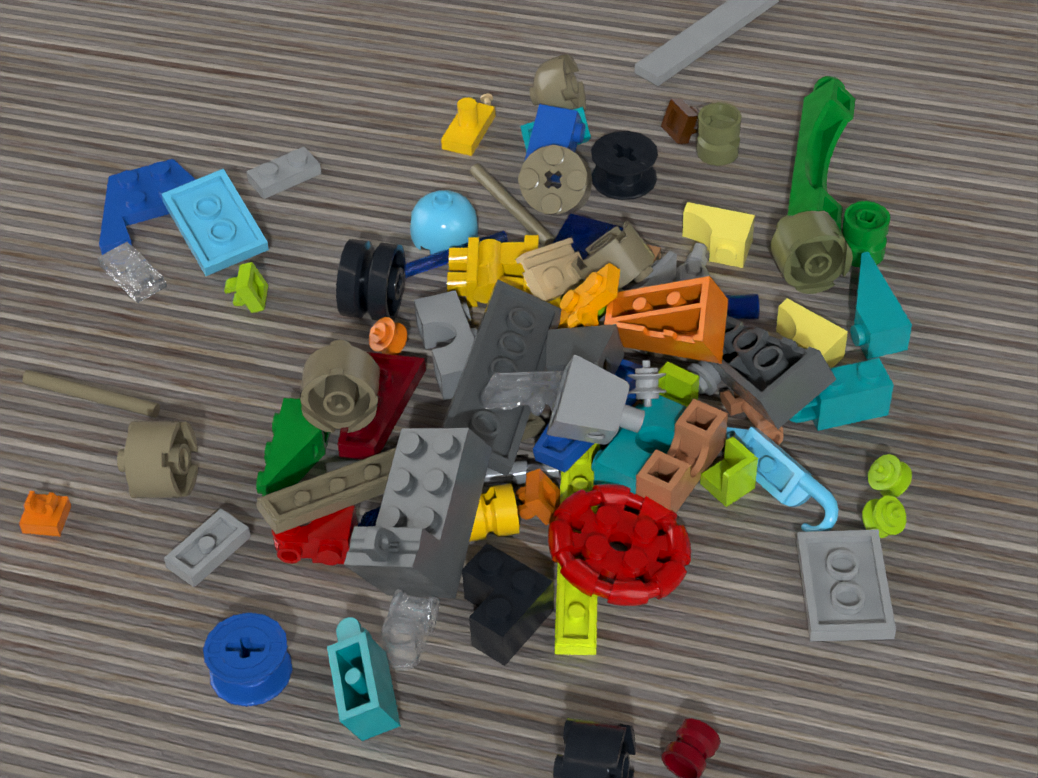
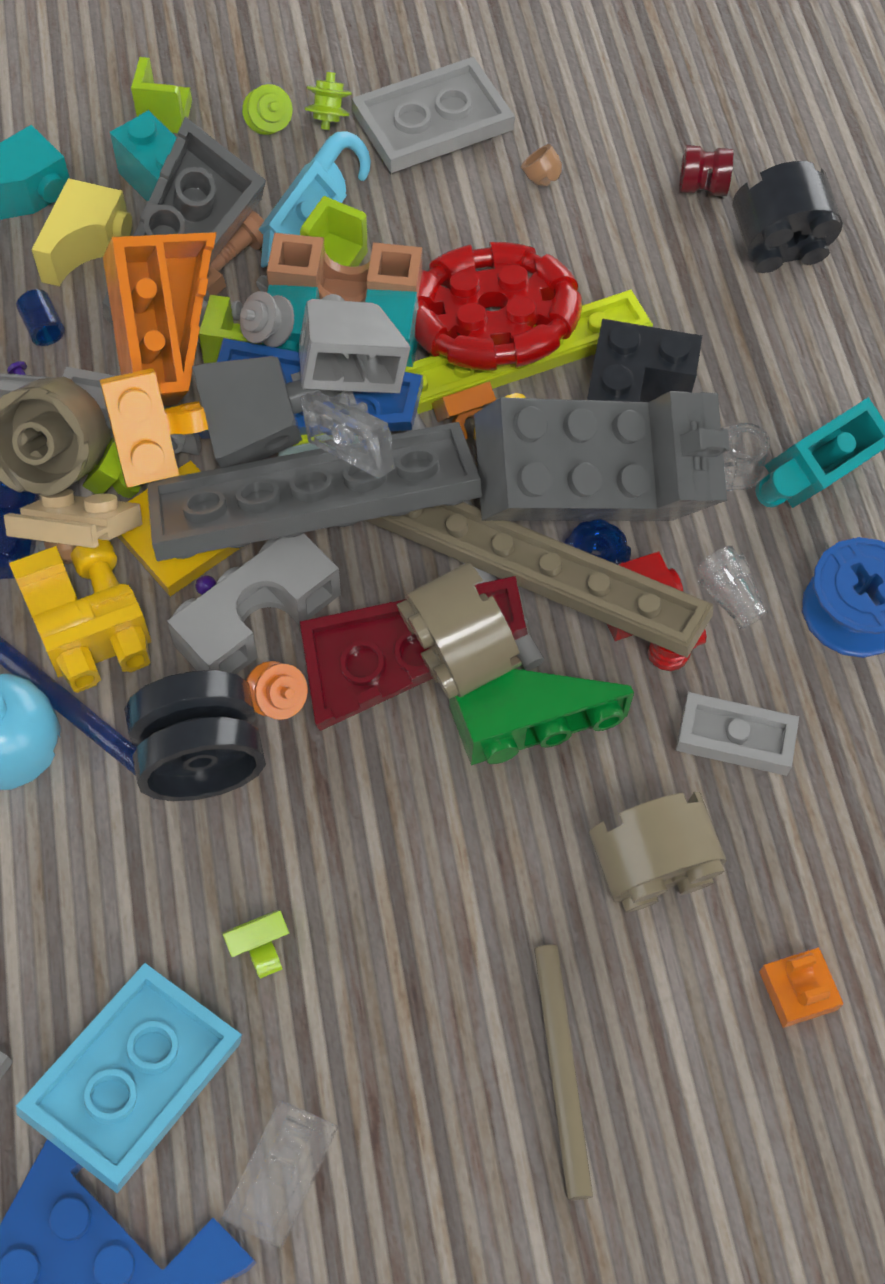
camera: 120 degrees left, 15 degrees up
(310, 591) = (732, 586): none -> clear cone
(752, 637) = (543, 166): none -> medium nougat hinge
(929, 415) = (166, 102): none -> lime panel

